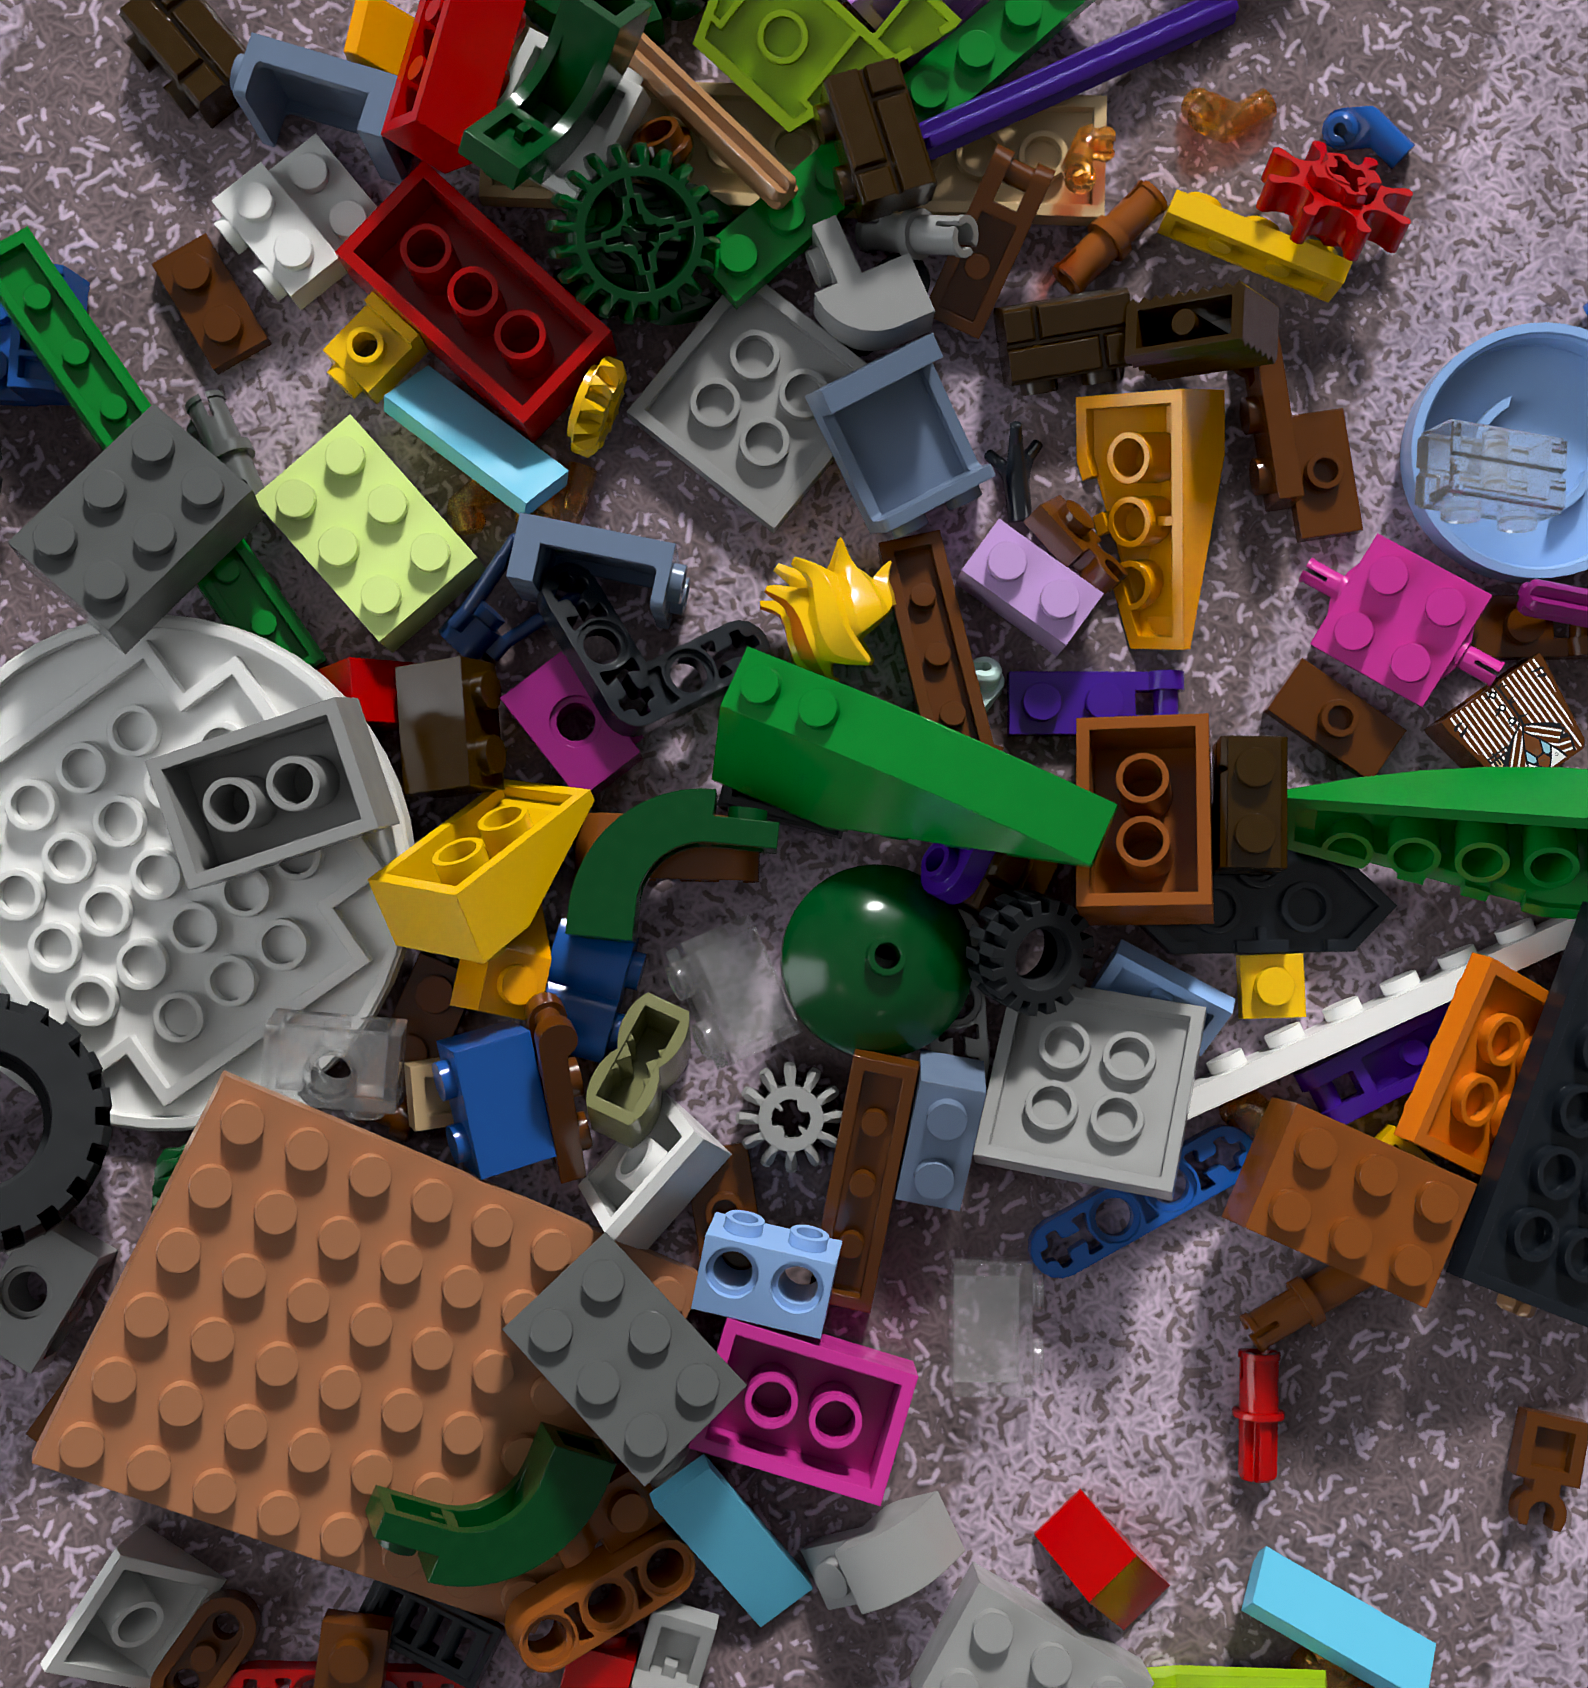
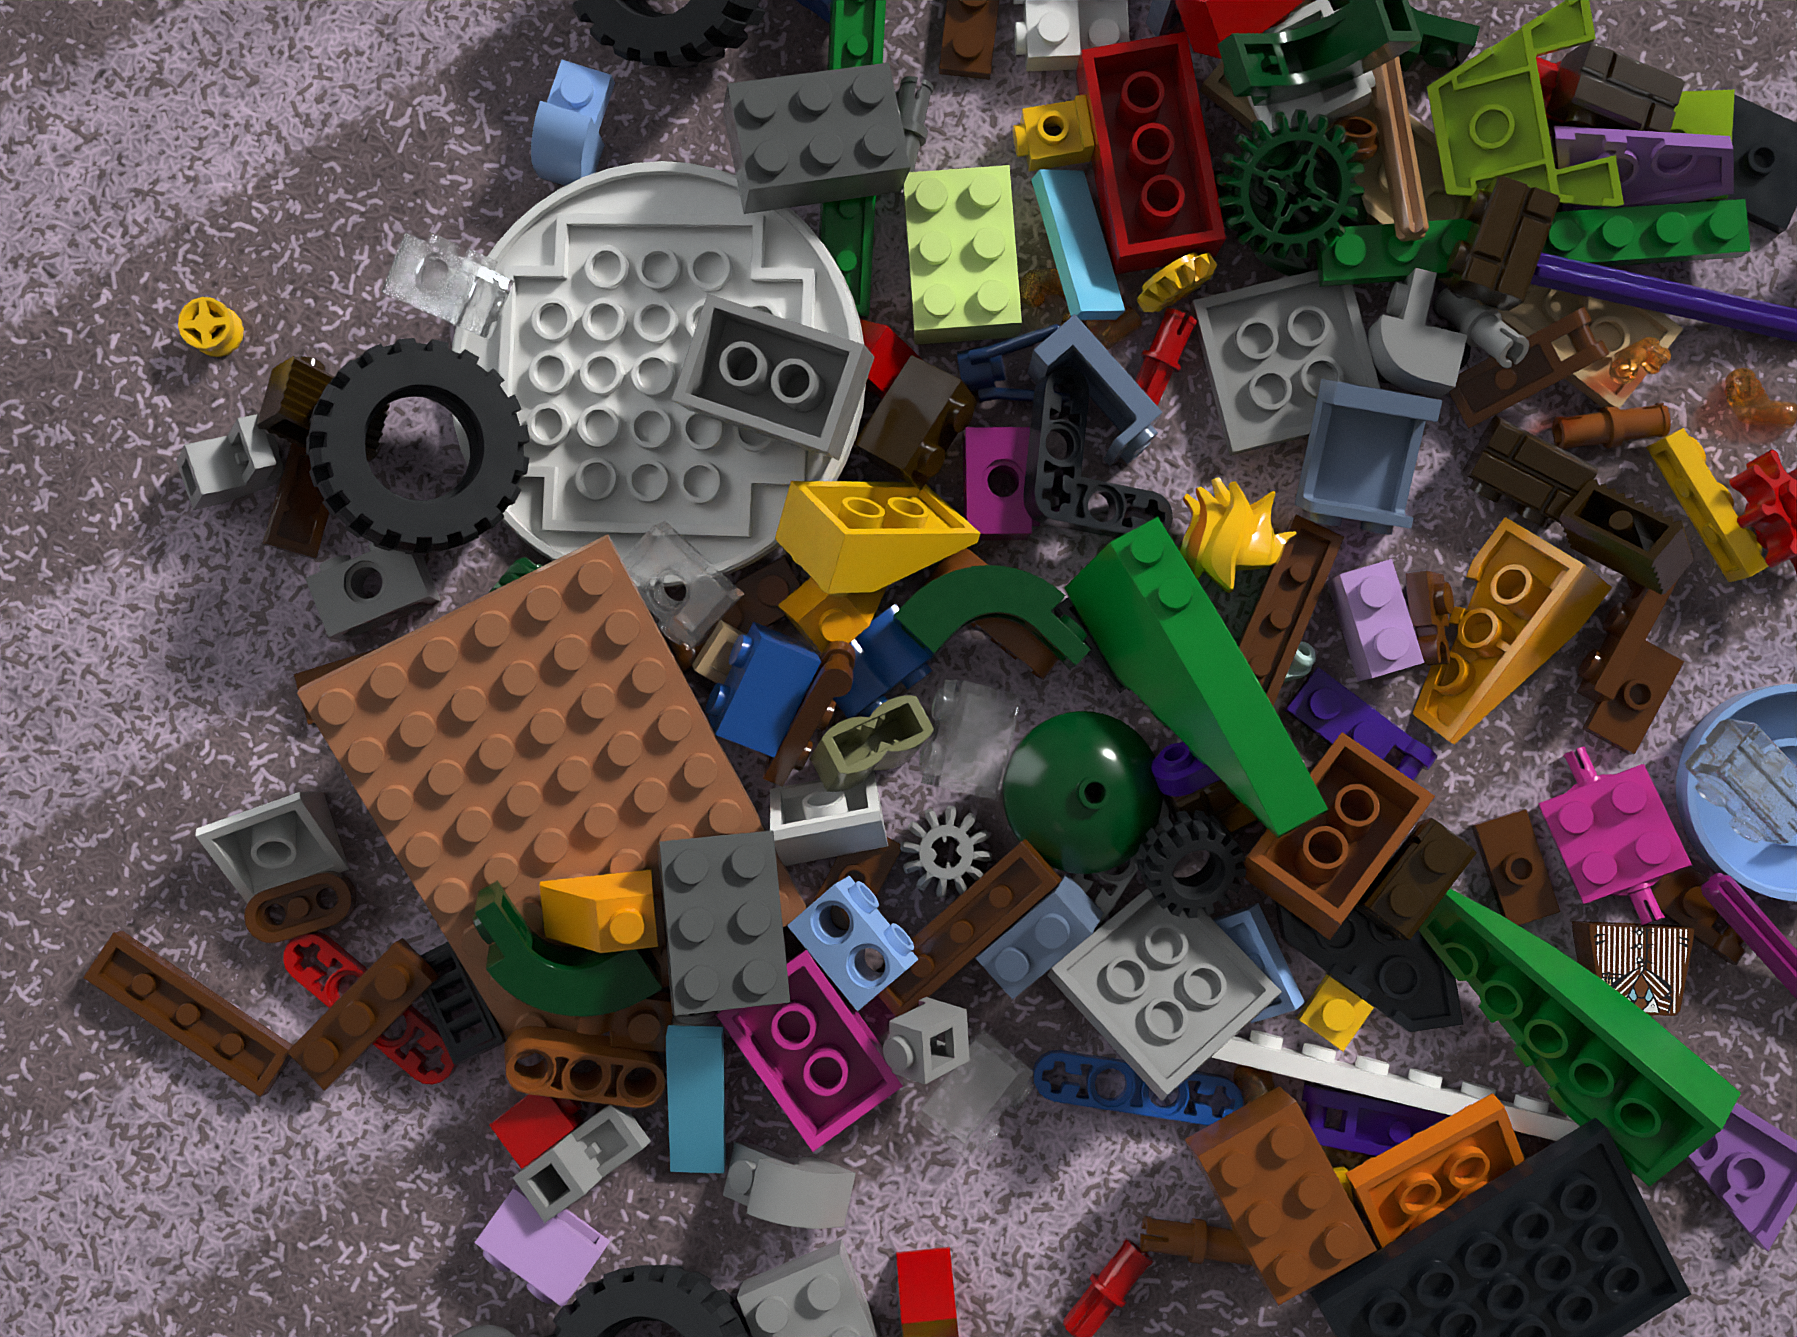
camera: 50 degrees right, 0 degrees up
(501, 1435) = (601, 911): none -> light orange slope
(639, 485) = (1164, 353): none -> red axle
(897, 1326) = (914, 1044): none -> light grey brick
(1016, 473) = (1425, 537): black bar -> none

